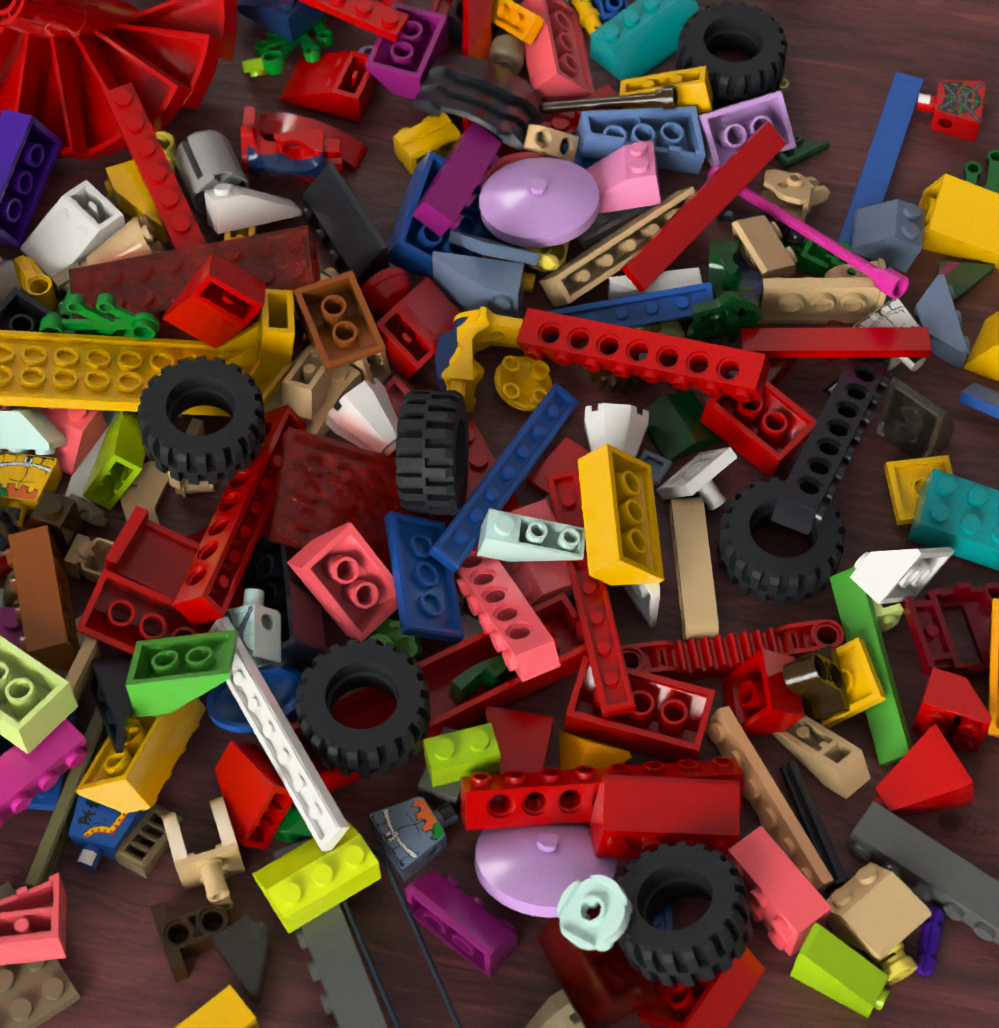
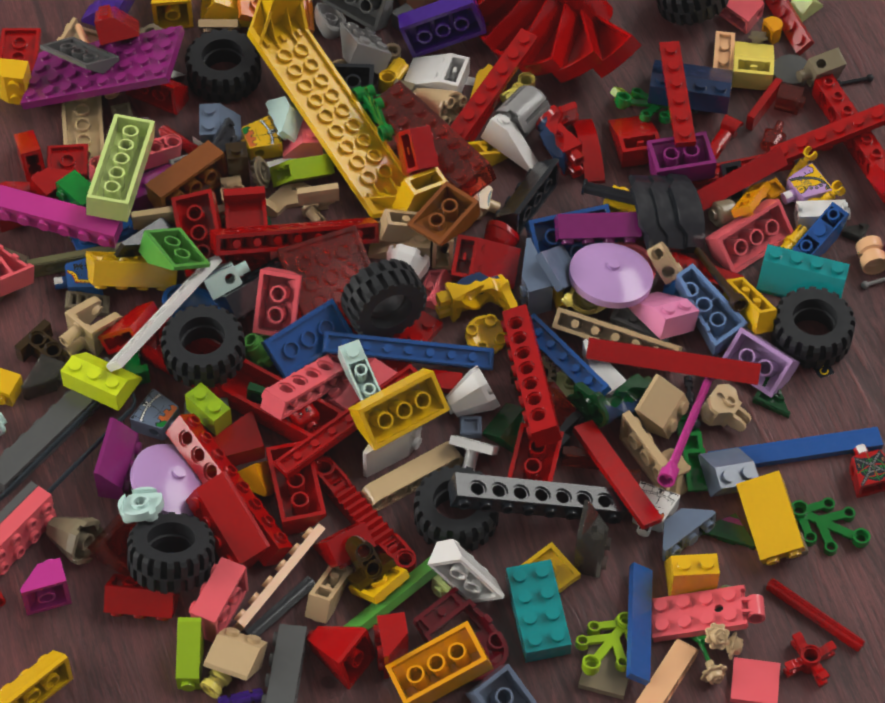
camera: 60 degrees right, 5 degrees down
(194, 385) = (325, 161): black tyre -> none
(411, 141) = (607, 192): none -> black axle

